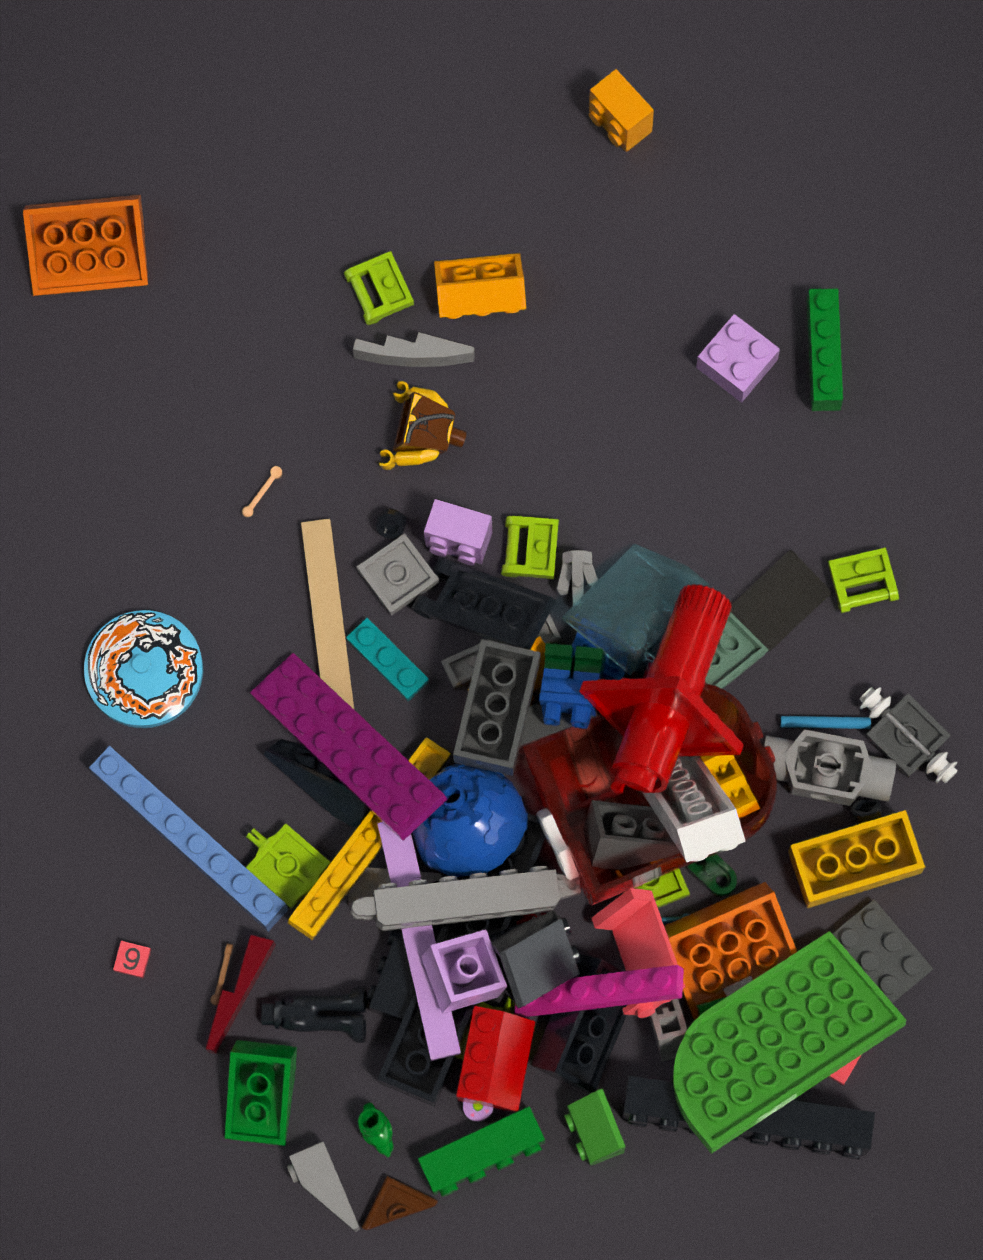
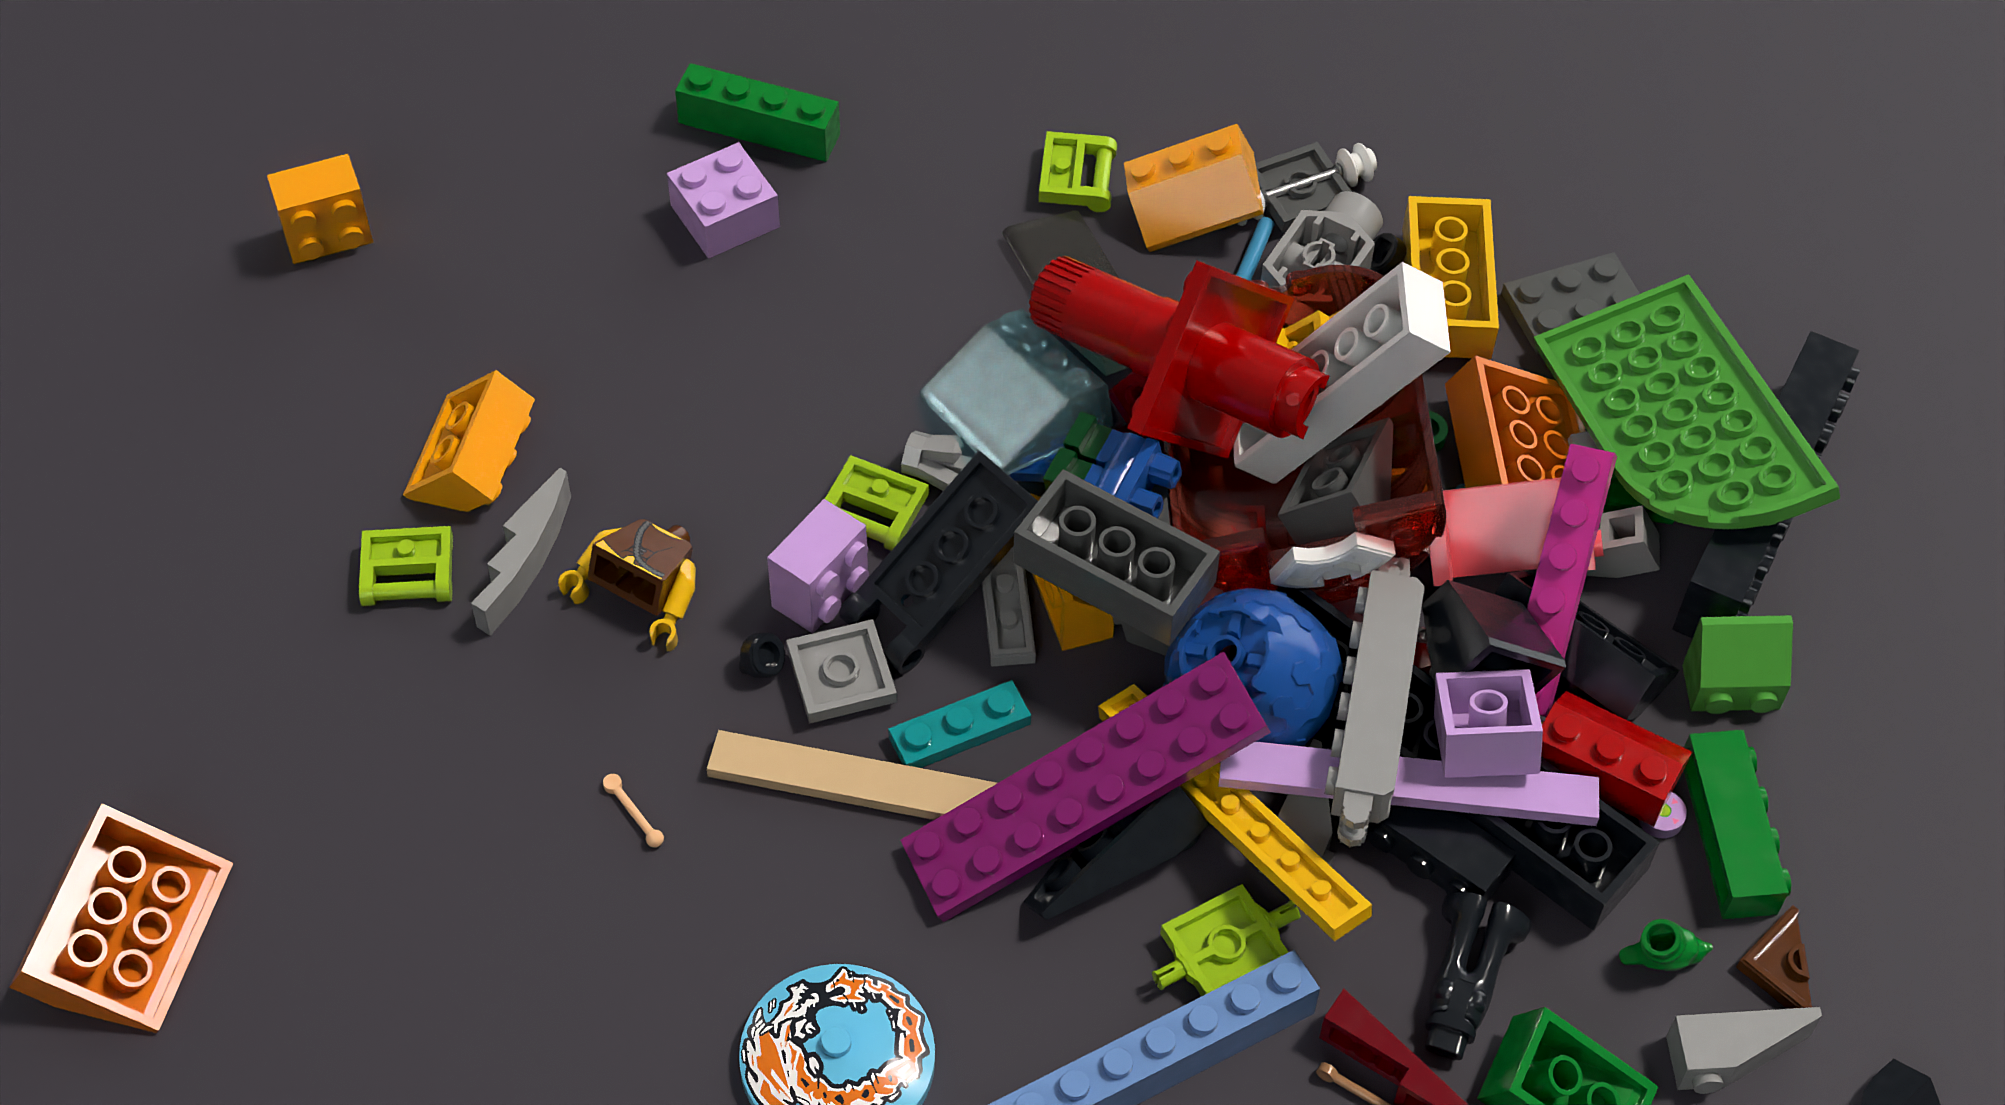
camera: 75 degrees left, 20 degrees down
(861, 663) = (1194, 187): none -> light orange slope

